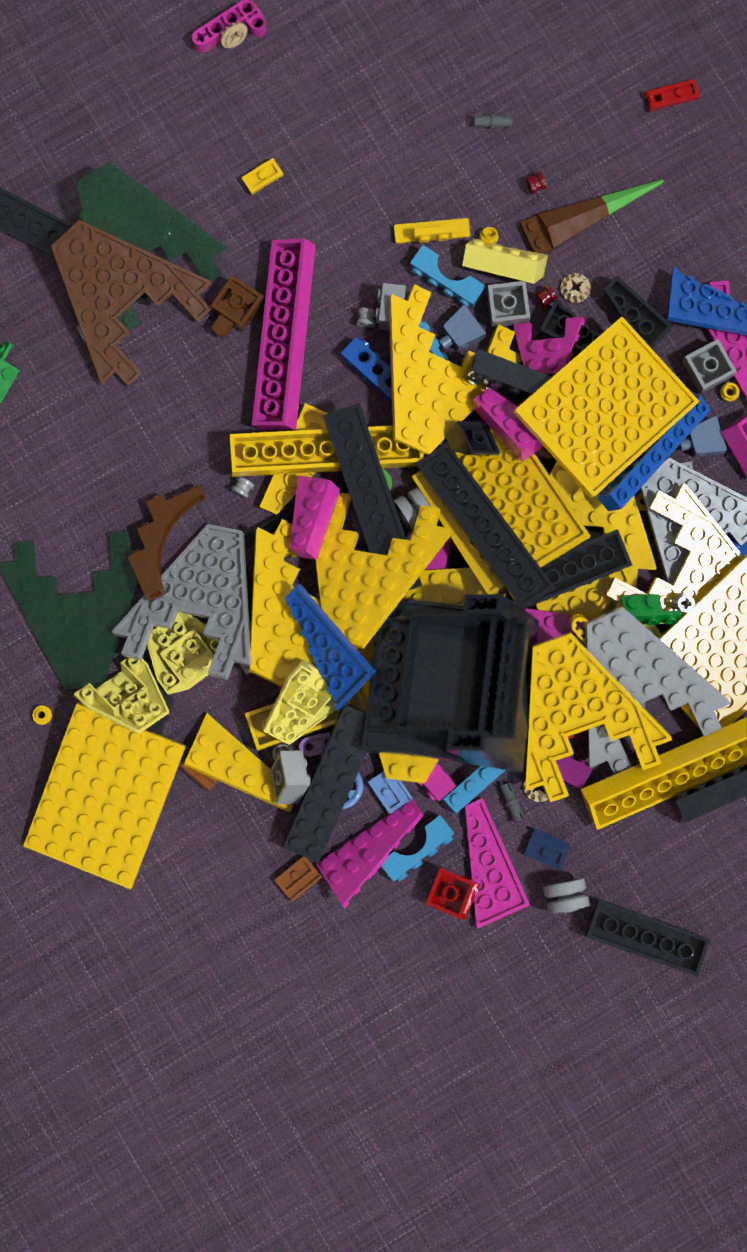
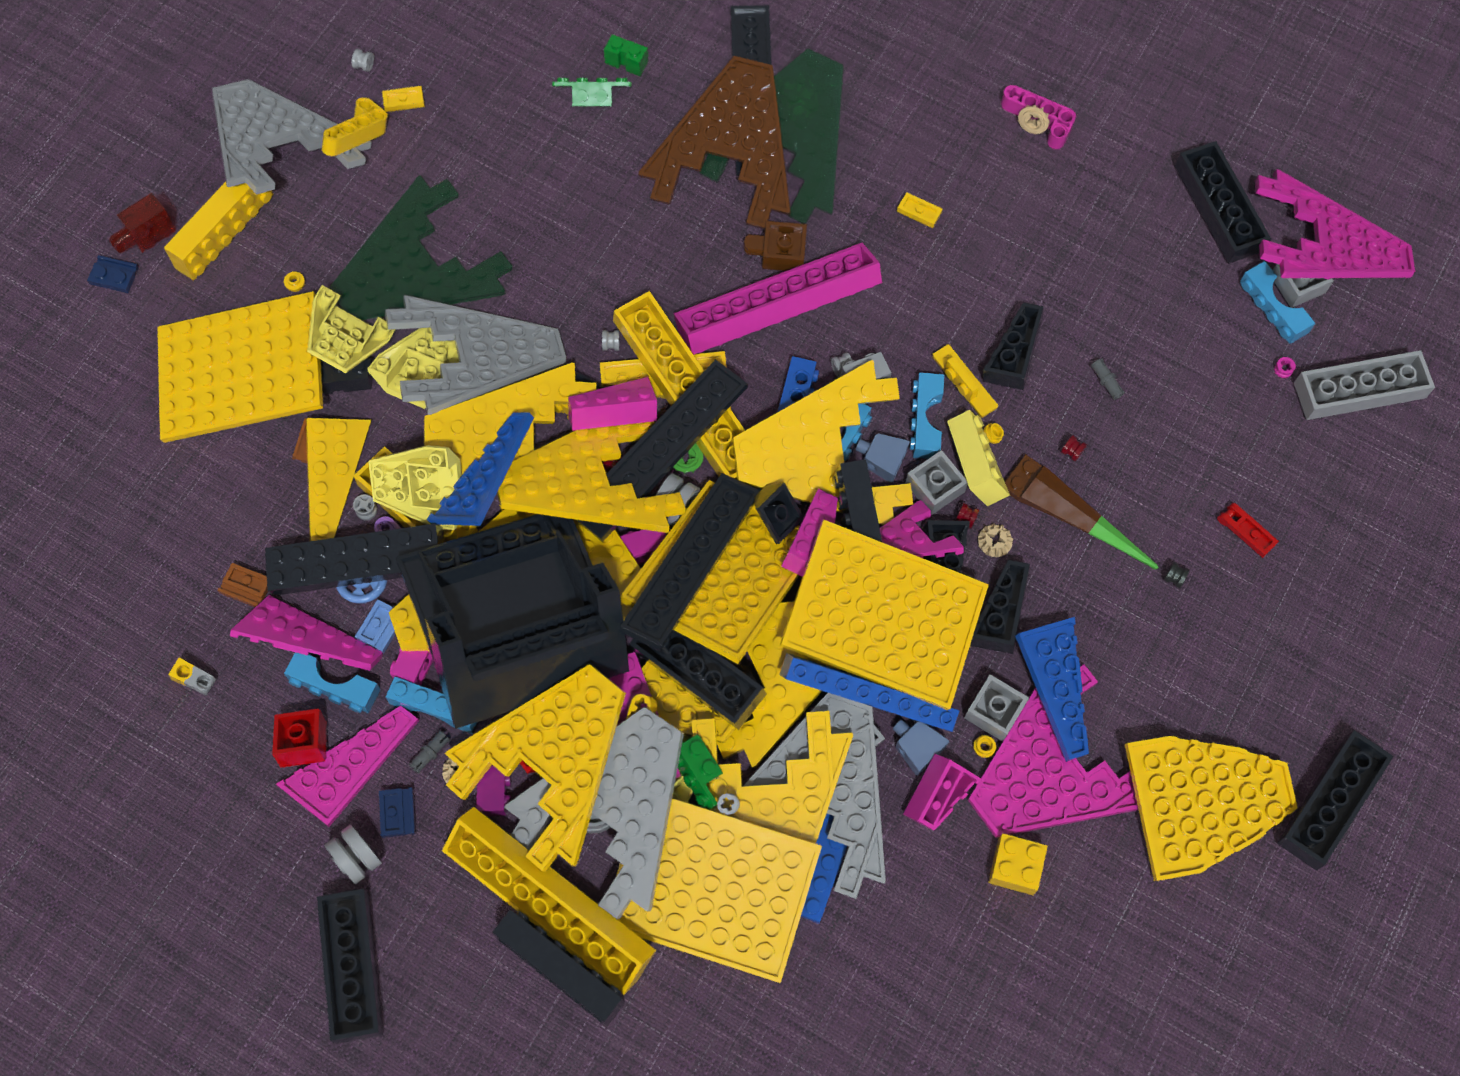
camera: 60 degrees right, 15 degrees down
(153, 534) = (517, 285): reddish brown arch -> none
(289, 777) = (341, 518): light grey brick -> none
(354, 953) = (191, 676): none -> leg
(432, 176) = (1013, 356): none -> black wedge
(678, 171) = (1176, 575): none -> pearl dark grey wheel

